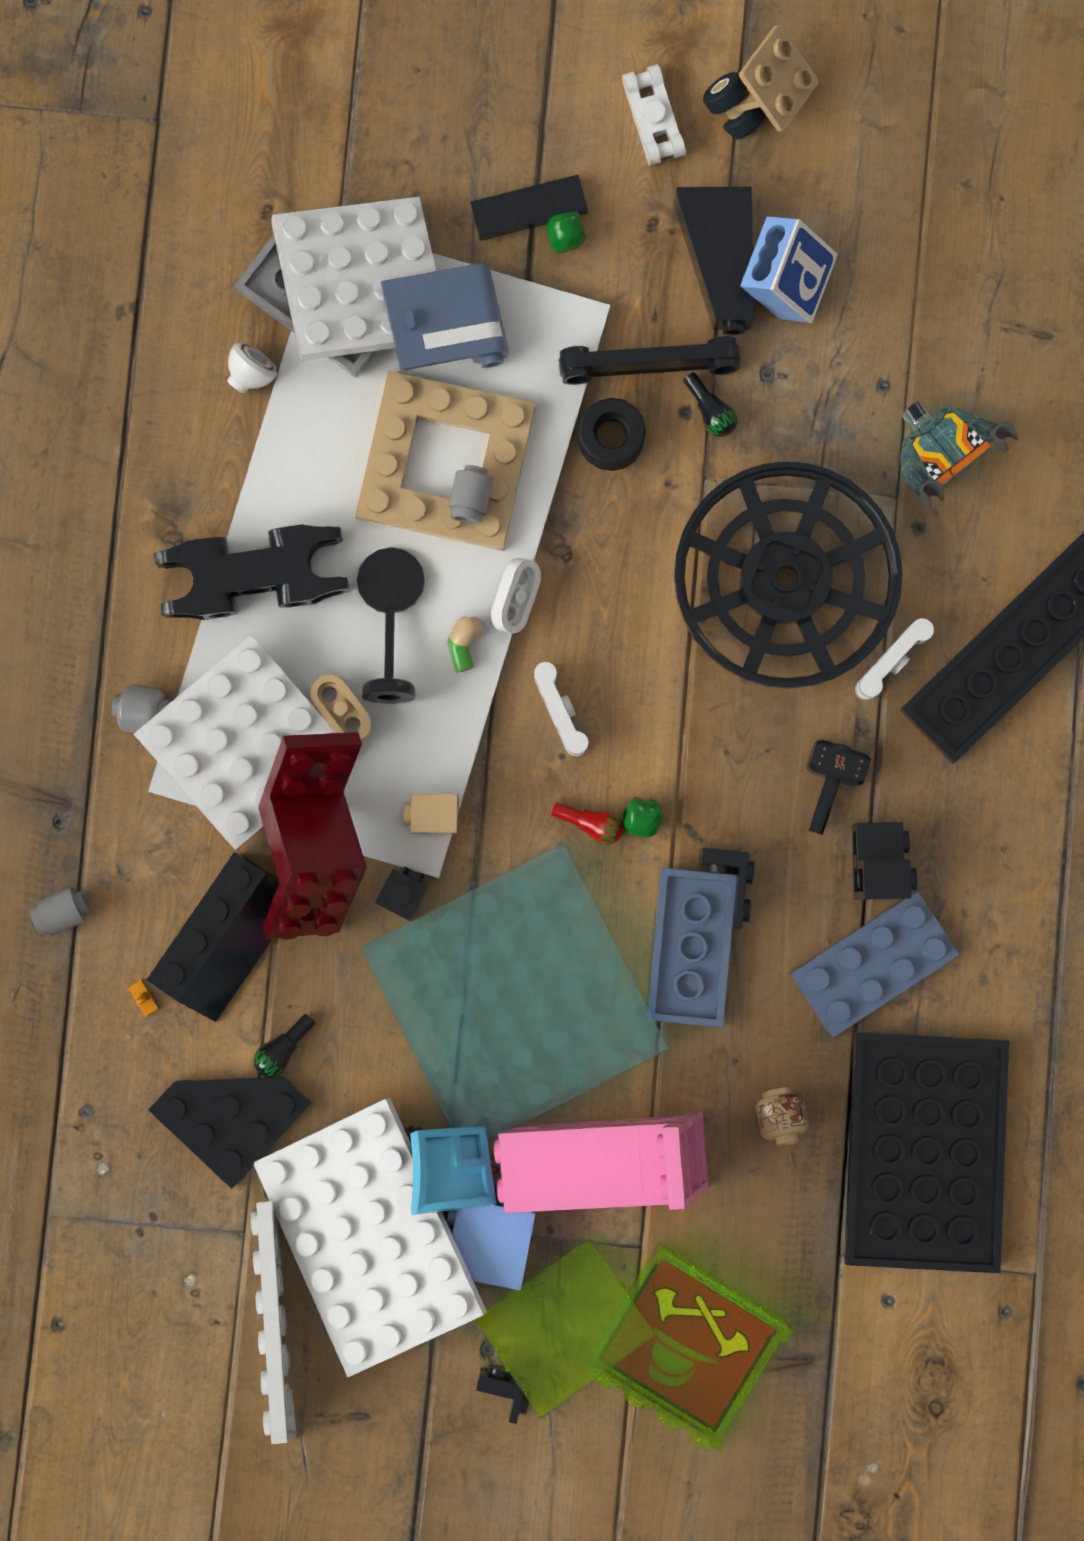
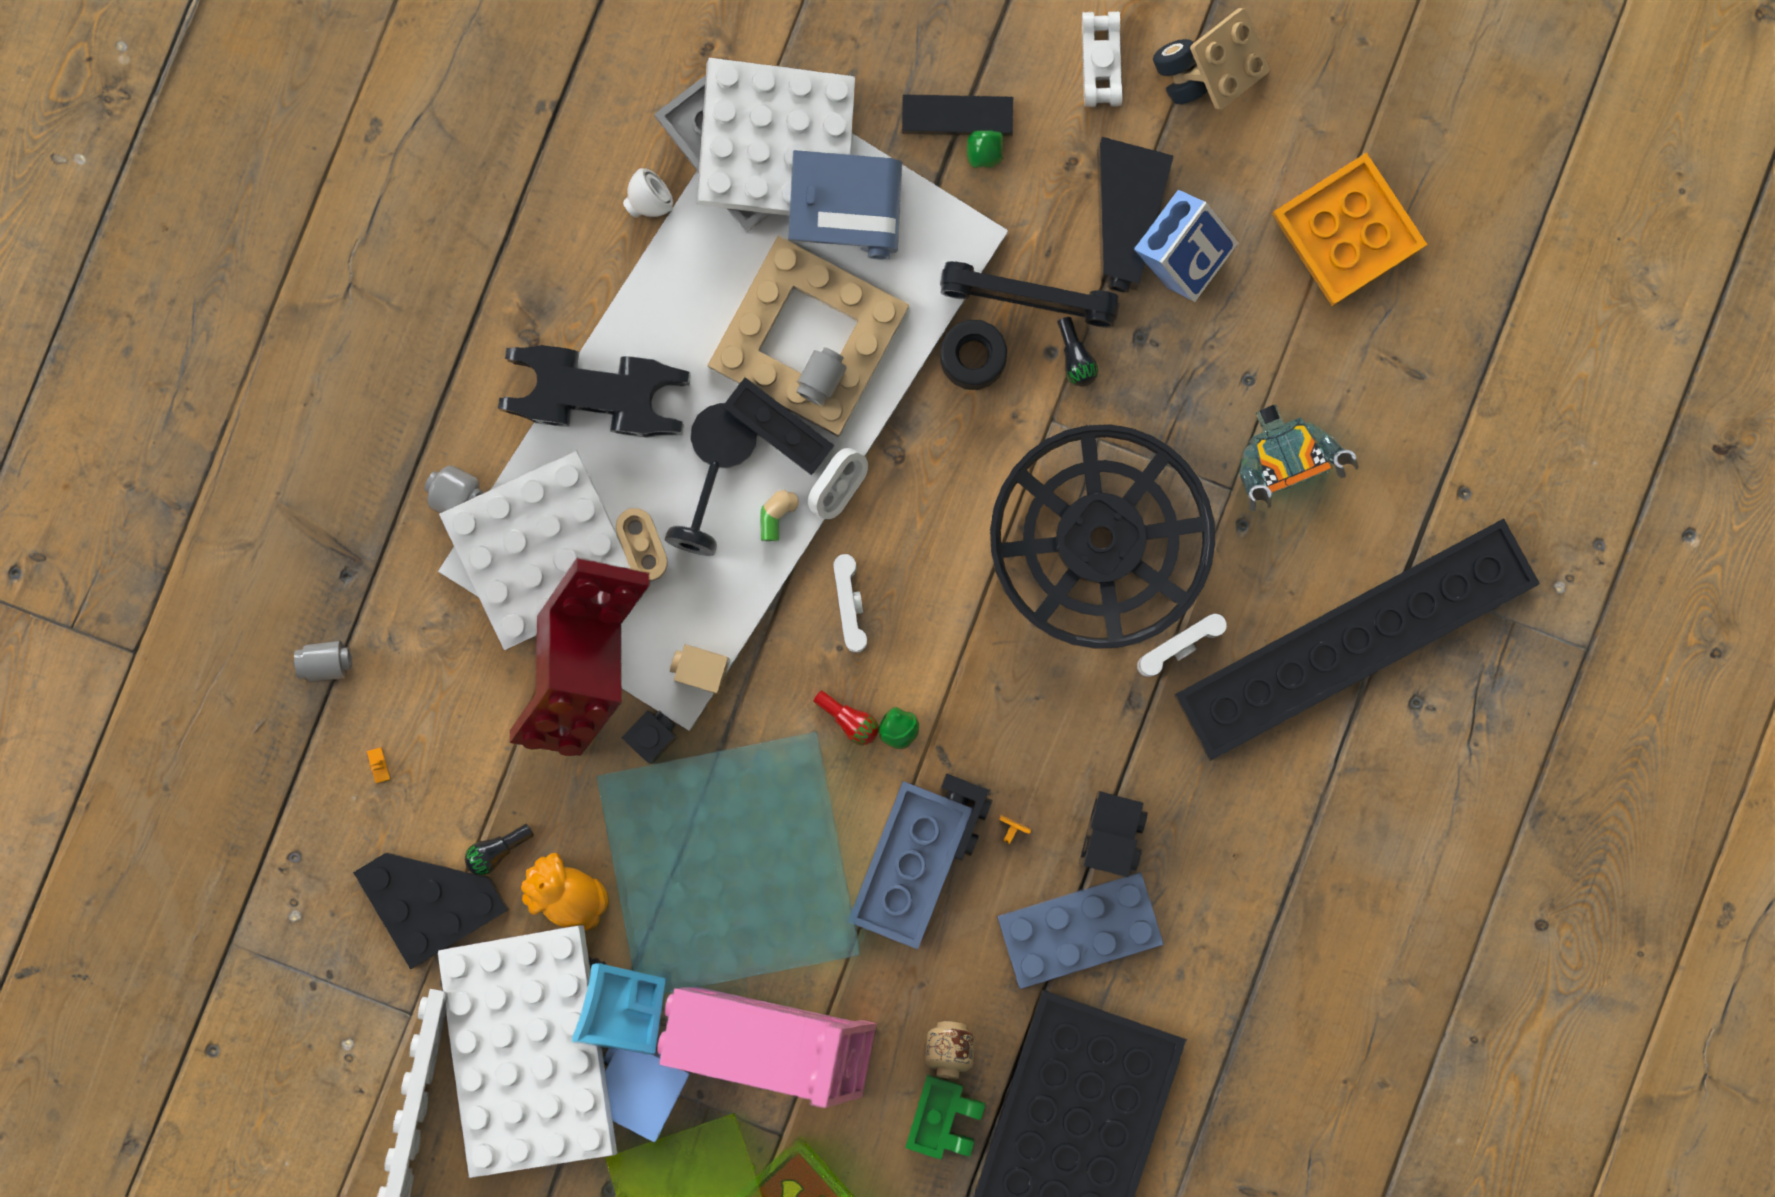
camera: 20 degrees right, 0 degrees up
(219, 940) = (465, 731): black slope -> none
(361, 1072) = (563, 893): none -> light orange hair
(441, 556) = (777, 426): none -> black plate
(780, 886) = (1012, 829): none -> light orange piece
(786, 1186) = (935, 1116): none -> green plate
(838, 765) = (1099, 731): black piece -> none
(940, 212) = (1349, 229): none -> light orange plate

